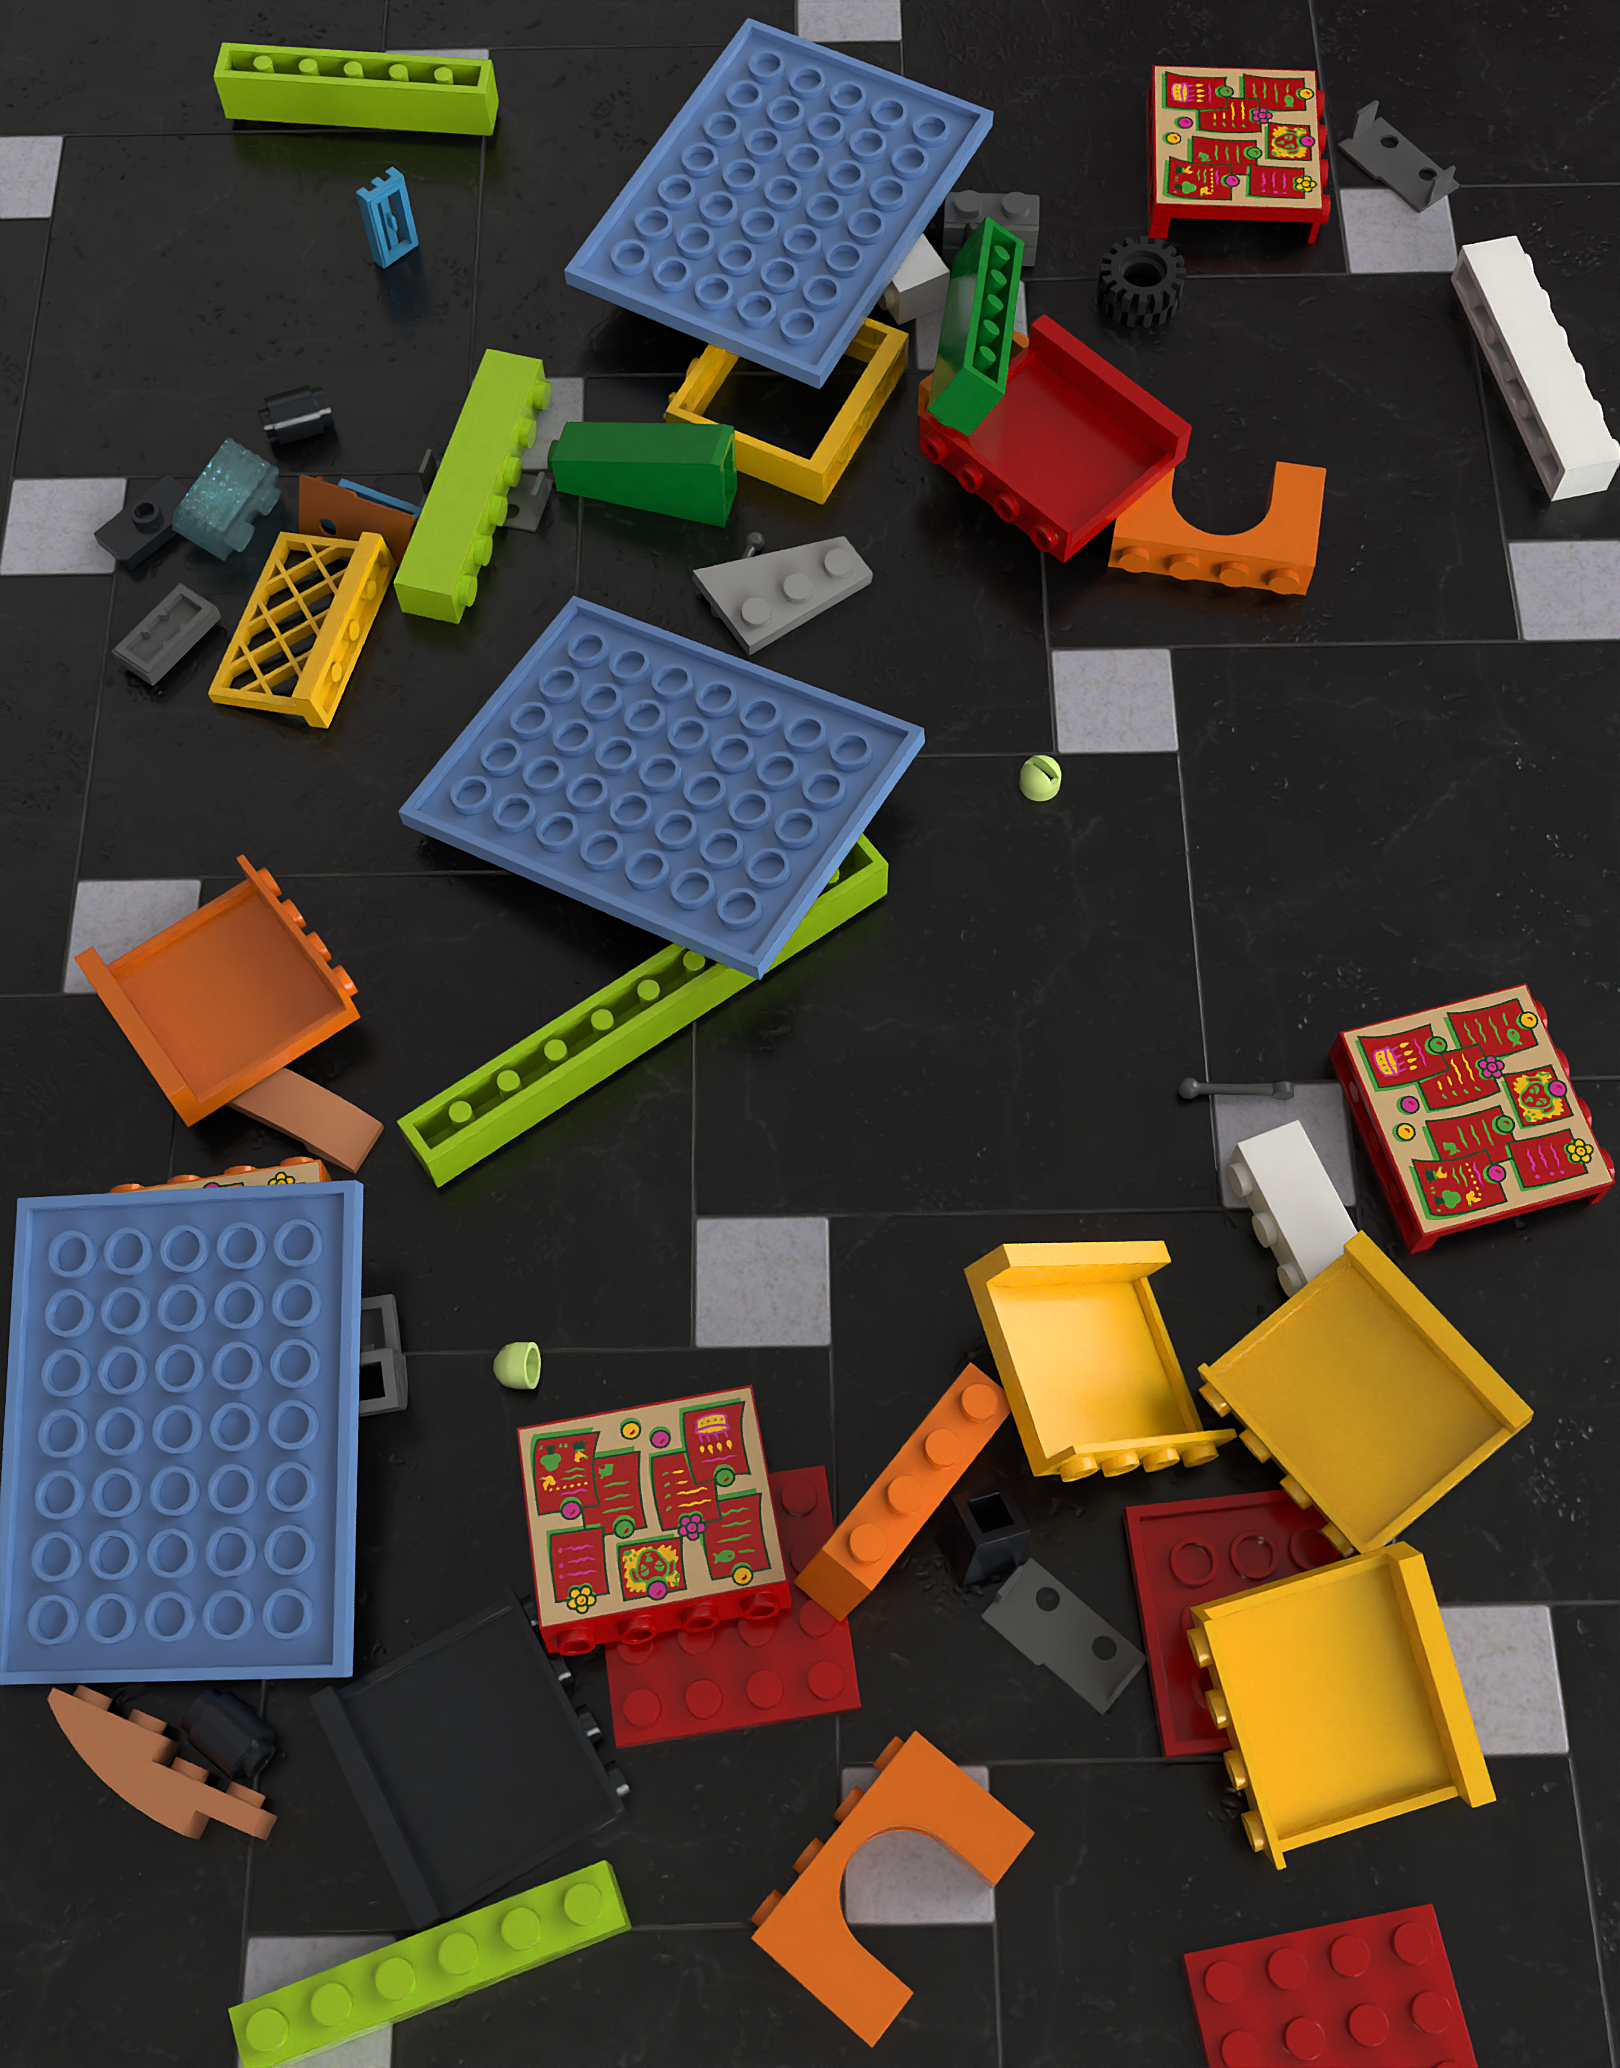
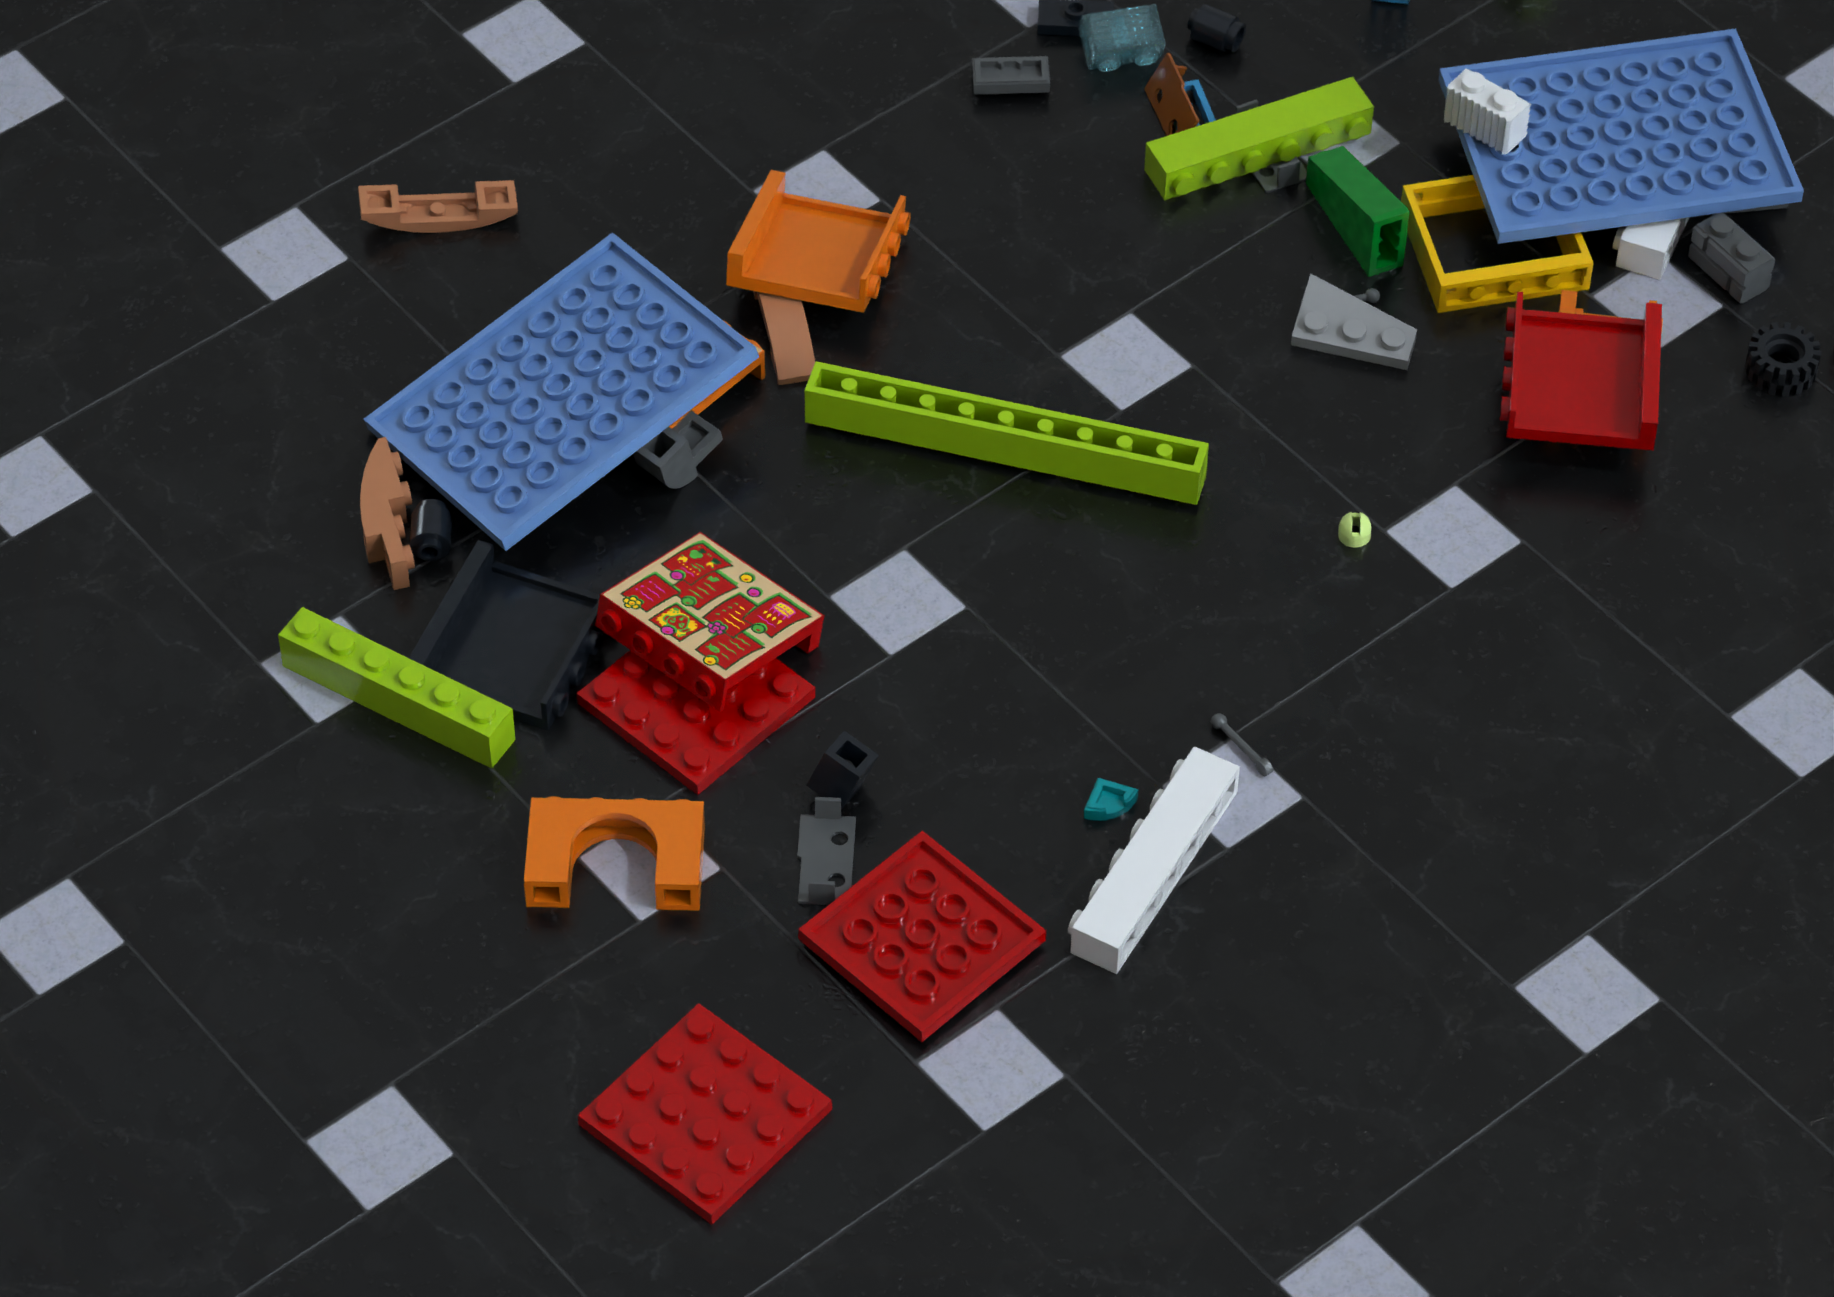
camera: 50 degrees right, 15 degrees down
(339, 630) = (1086, 146): yellow fence -> none
(518, 1365) = (739, 521): yellowish green hinge -> none
(665, 783) = (1148, 342): medium blue plate -> none
(673, 269) = (1486, 111): none -> white brick
(905, 1493) = (778, 687): orange arch -> none
(977, 328) = (1623, 280): green brick -> none
(1088, 1358) = (988, 741): yellow panel -> none
(1210, 1275) = (1109, 800): none -> teal tile
(1270, 556) = (1642, 544): orange arch -> none
(1338, 1699) = (895, 971): yellow panel -> none
(1364, 1399) = (1085, 886): yellow panel -> none
(1469, 1114) = (1339, 856): panel -> none

